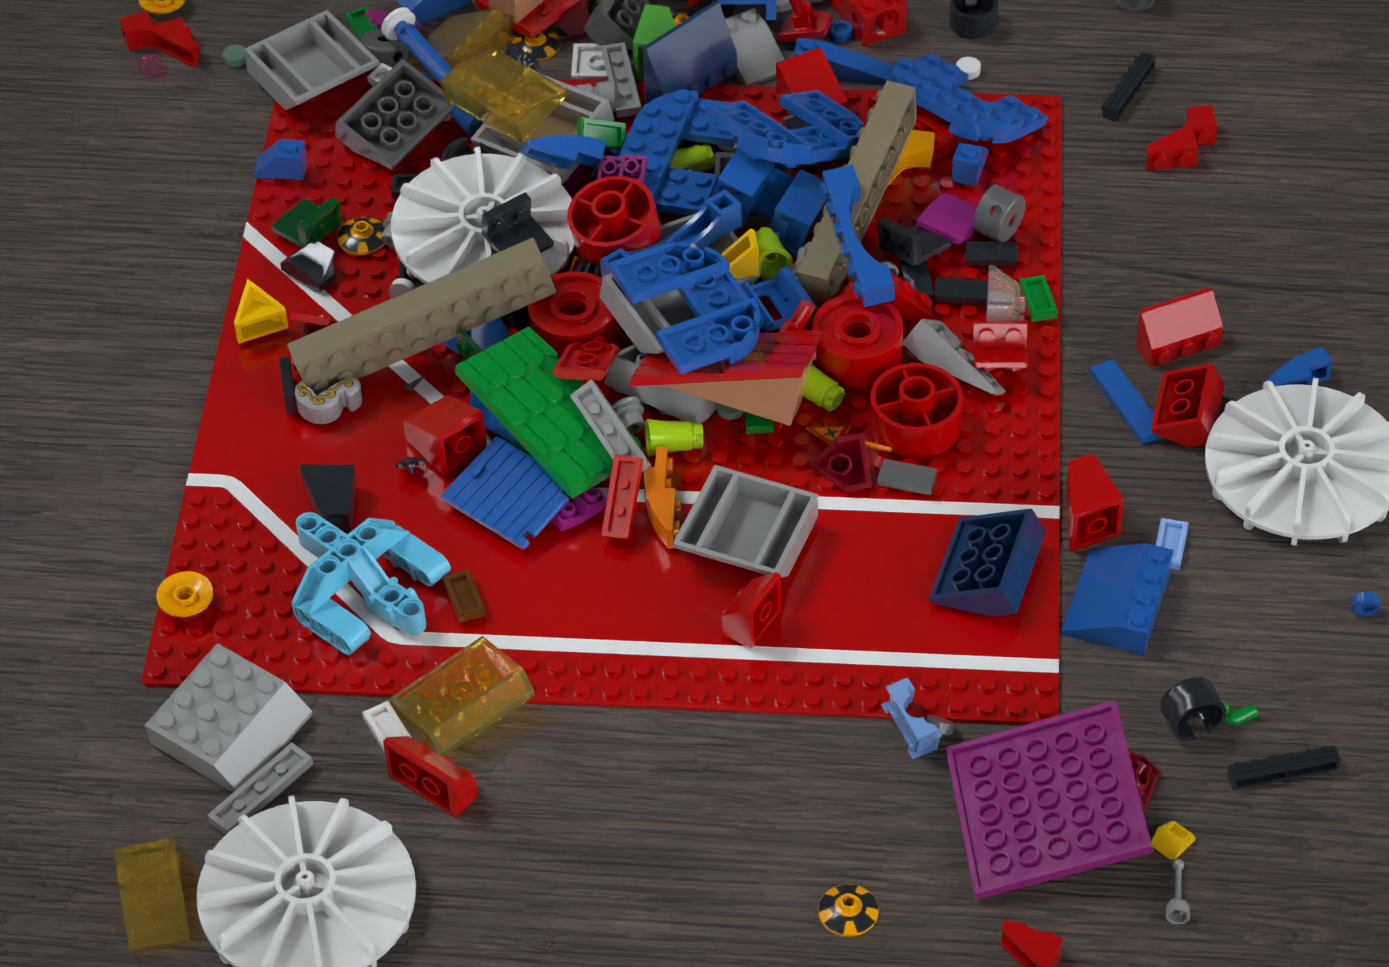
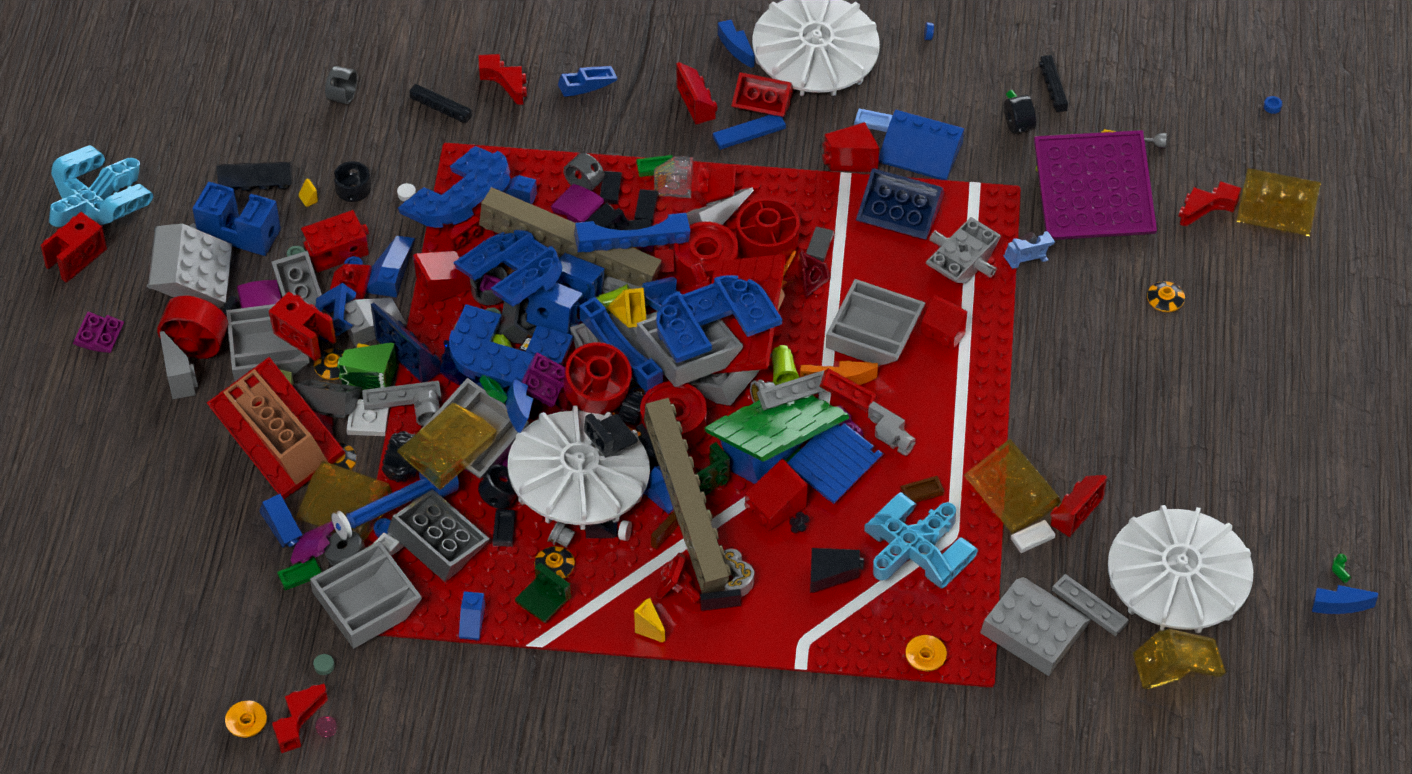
camera: 90 degrees left, 5 degrees up
(311, 265) = (588, 593): black slope -> none
(564, 555) = (890, 429): none -> light grey plate
(586, 360) = (733, 396): red tile -> none
(889, 631) = (964, 251): none -> light grey slope
(1194, 222) = (586, 80): none -> blue slope

